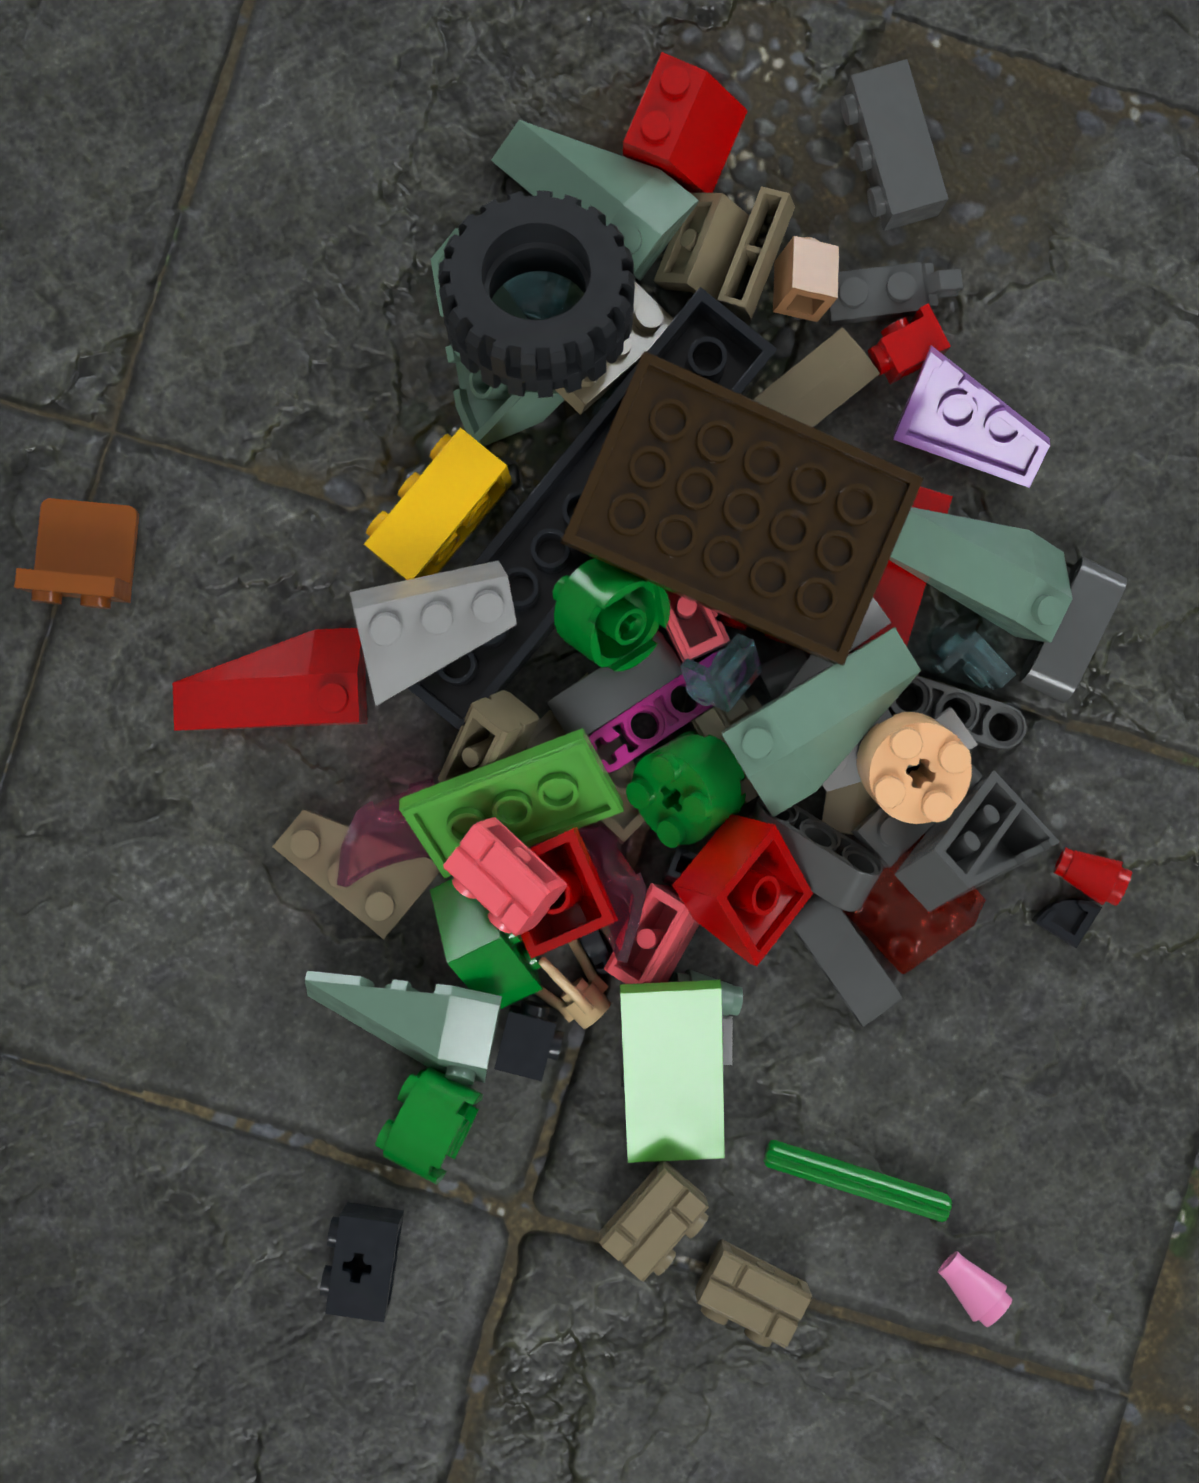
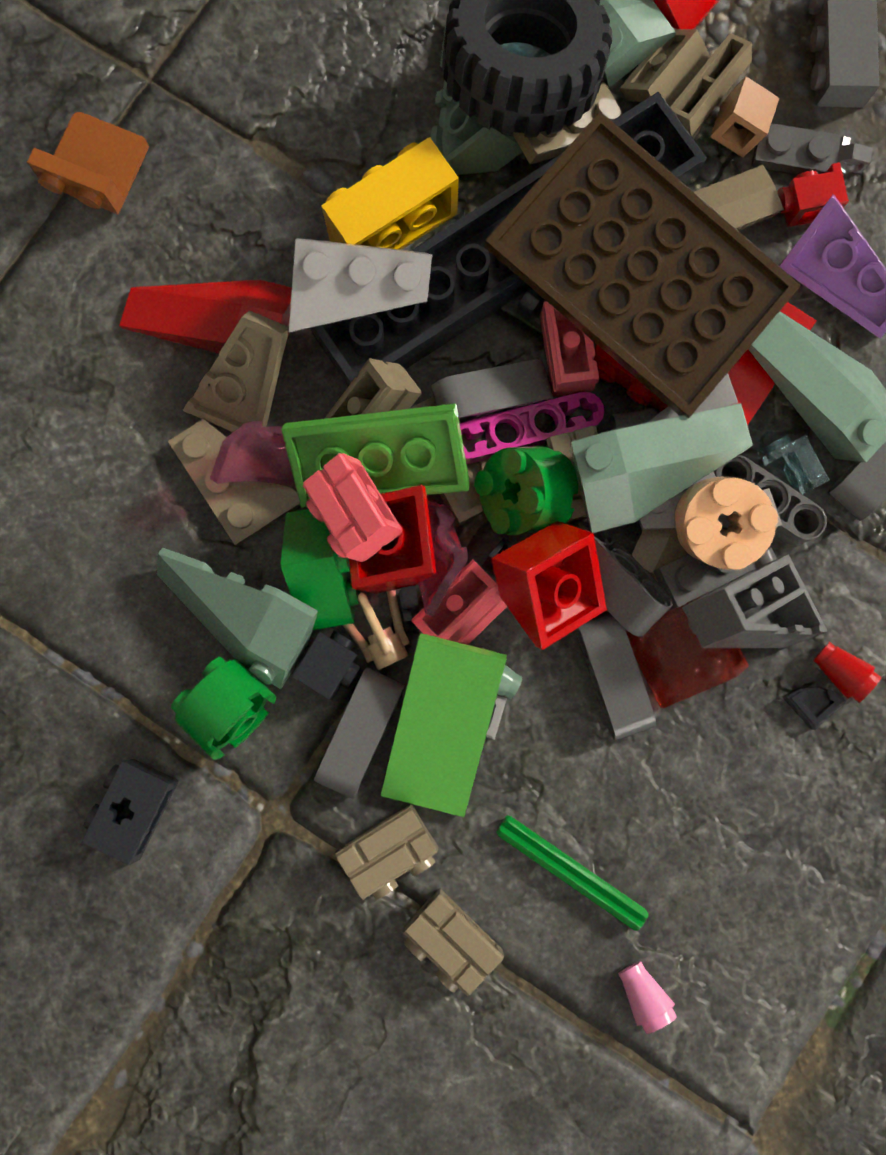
camera: 15 degrees right, 5 degrees down
(335, 757) = (243, 376): none -> dark tan wing
(585, 1103) = (359, 733): none -> dark grey beam
(609, 614) = (507, 323): green brick -> none
(727, 677) = (587, 407): clear light blue bracket -> none

